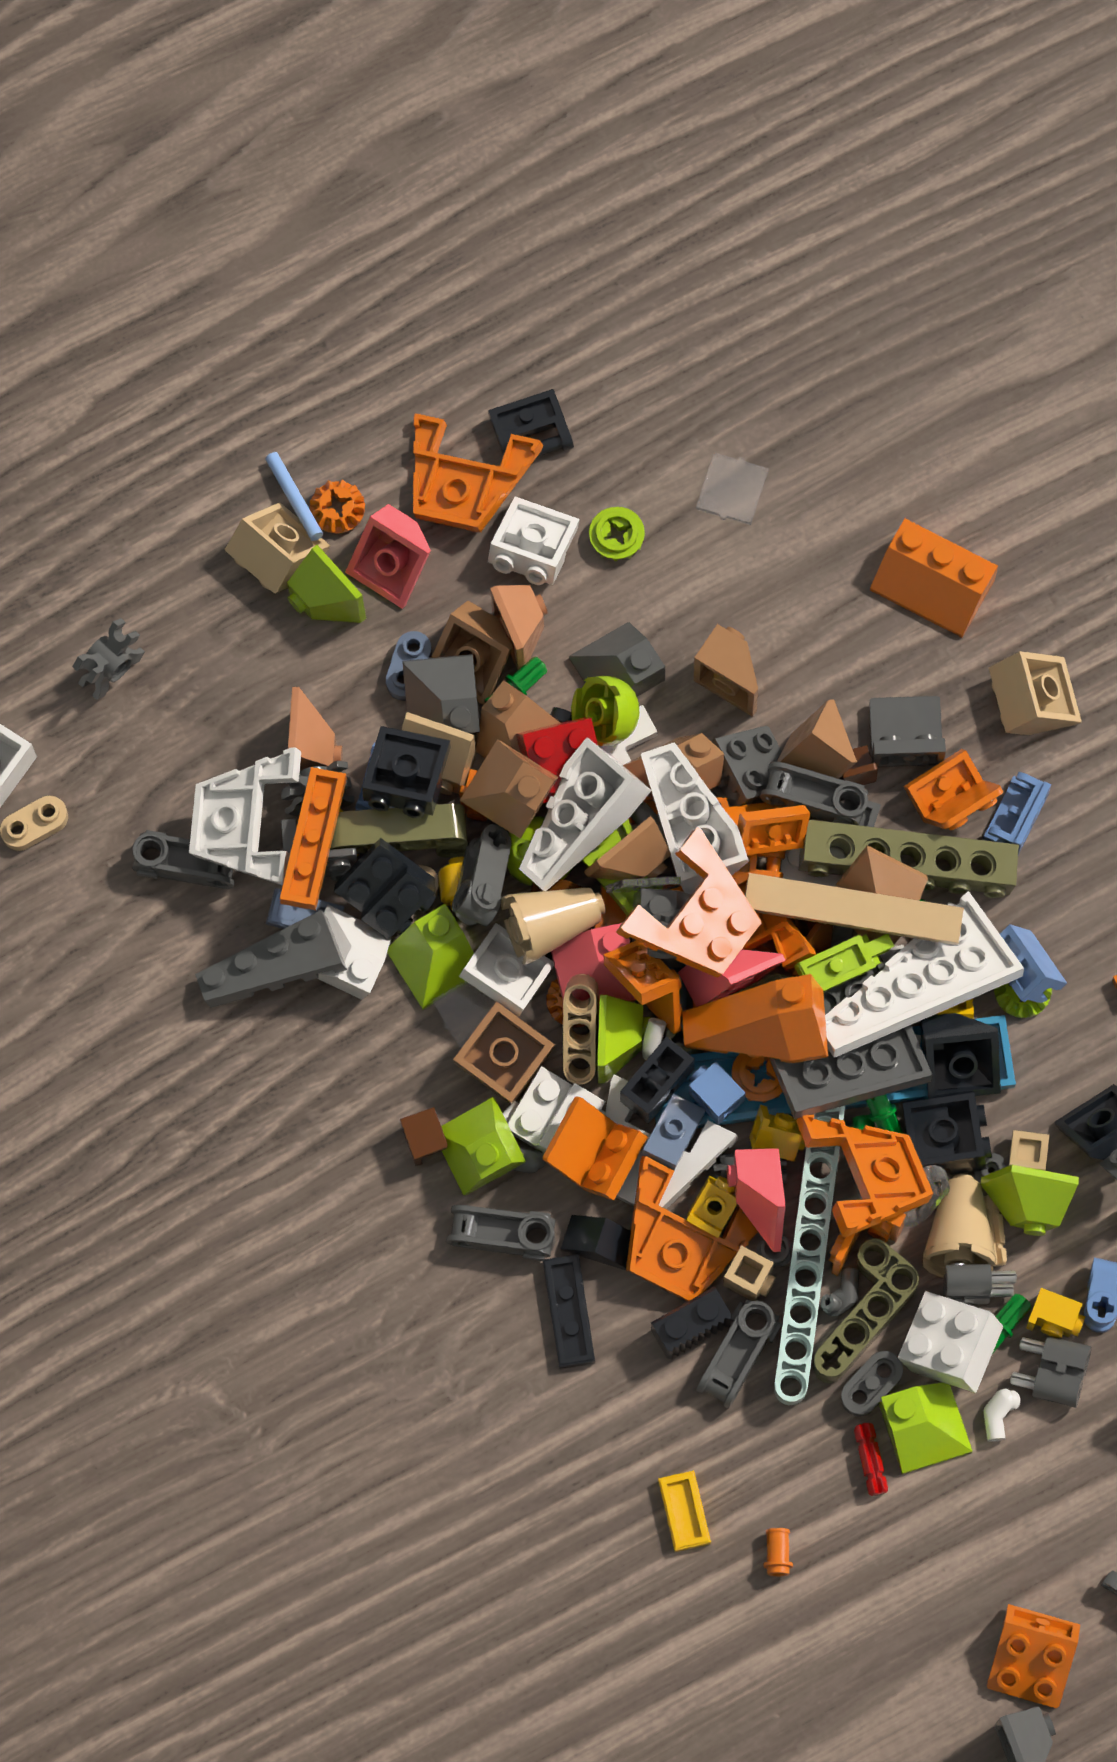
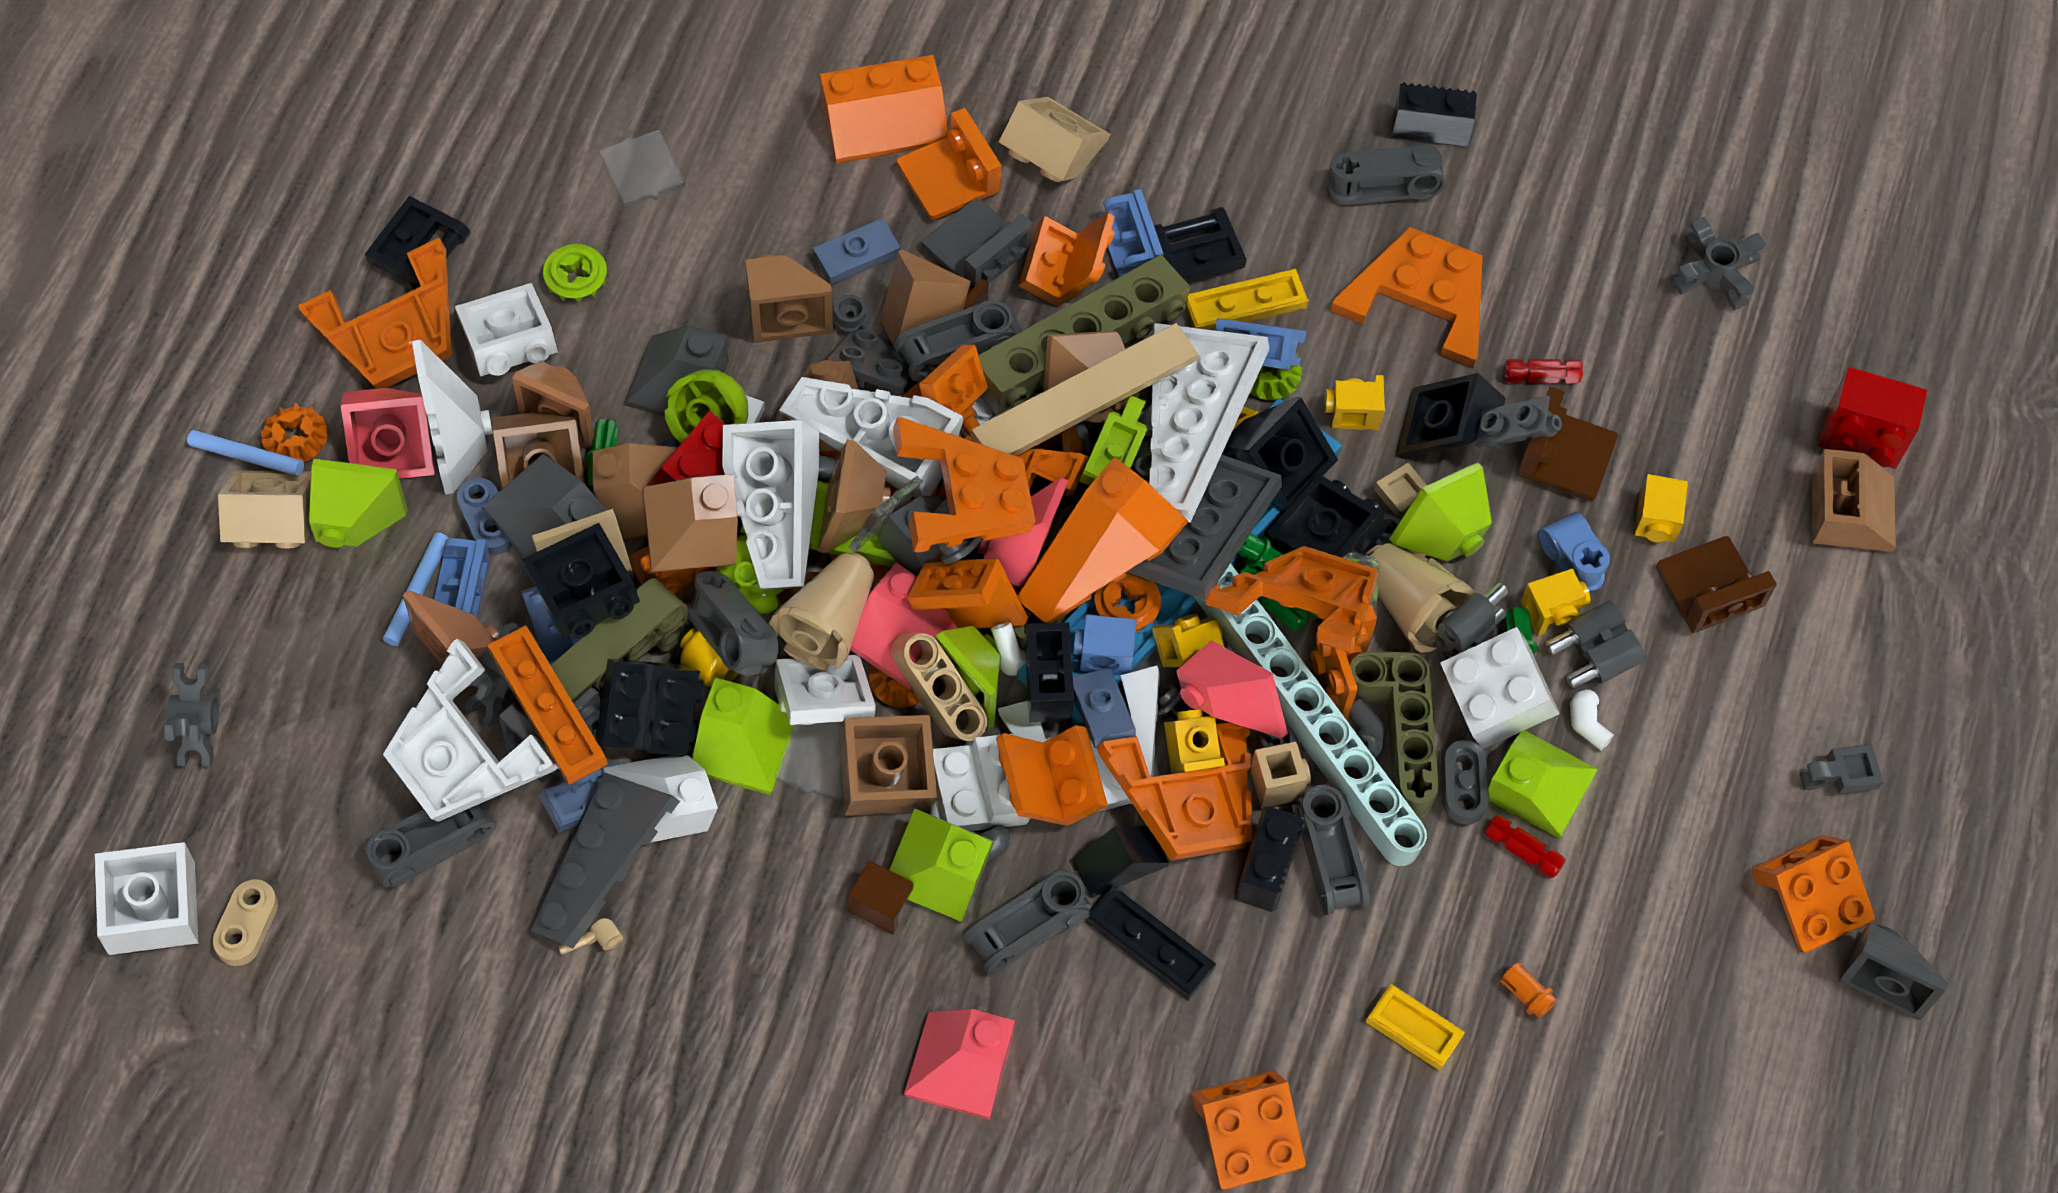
camera: 50 degrees left, 10 degrees down
(238, 1013) = (602, 931): none -> tan hand
(325, 679) = (418, 585): none -> light blue bar
(352, 701) = (463, 574): none -> medium blue hinge
(379, 1285) = (961, 1060): none -> coral slope
(434, 582) = (453, 418): none -> white wedge
(515, 1481) = (1250, 1128): none -> orange bracket
(775, 705) = (850, 305): none -> dark grey plate
(820, 669) = (856, 251): none -> sand blue plate
(936, 661) = (953, 169): none -> orange bracket
(1056, 867) = (1205, 254): none -> black plate
(1056, 924) = (1247, 300): none -> yellow tile
(1056, 1062) = (1356, 404): none -> yellow brick

